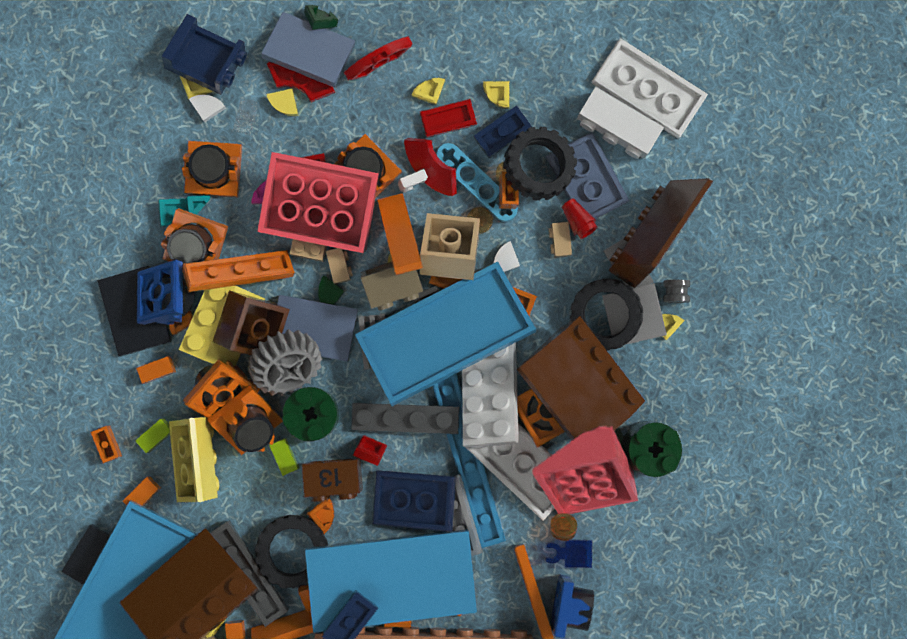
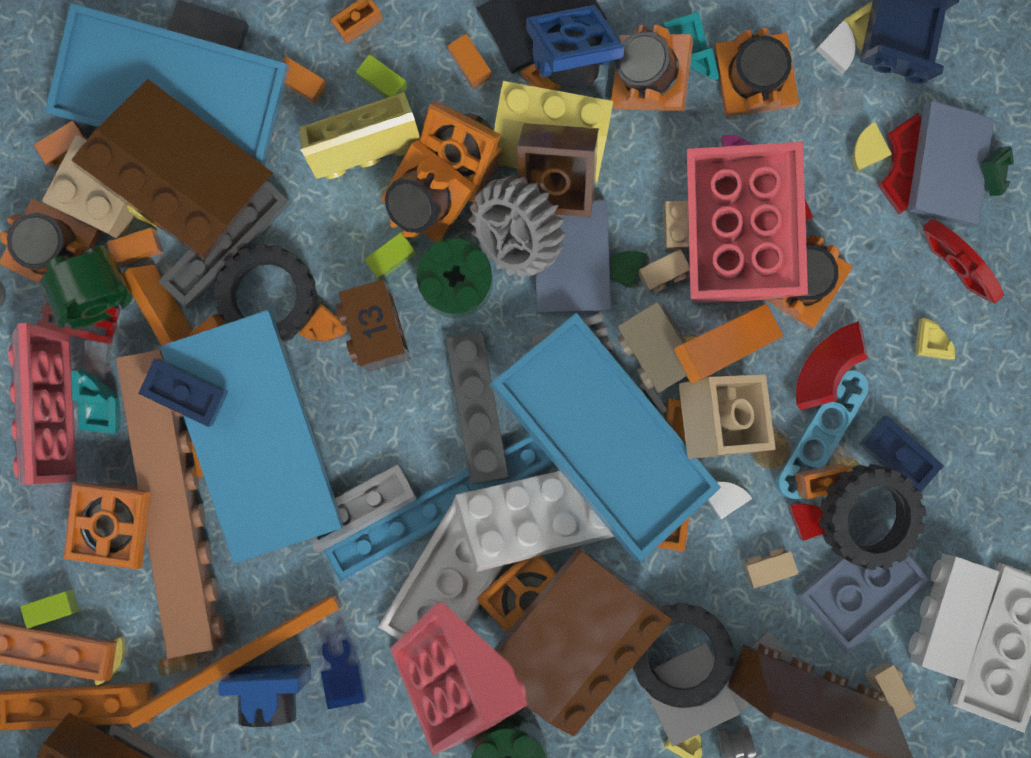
camera: 80 degrees right, 0 degrees up
(237, 270) = (627, 135): orange tile -> none
(370, 450) = (423, 369): red tile -> none
(406, 183) = (800, 337): white tile -> none
(414, 500) = (368, 444): dark blue tile -> none
(448, 118) = (901, 375): red tile -> none
(497, 92) = (953, 436): light yellow tile -> none
(533, 207) = (806, 520): none -> red tile
(563, 527) = (375, 657): clear orange tile -> none
(579, 219) = (806, 588): red cone -> none
(660, 176) = (888, 680): none -> tan piece

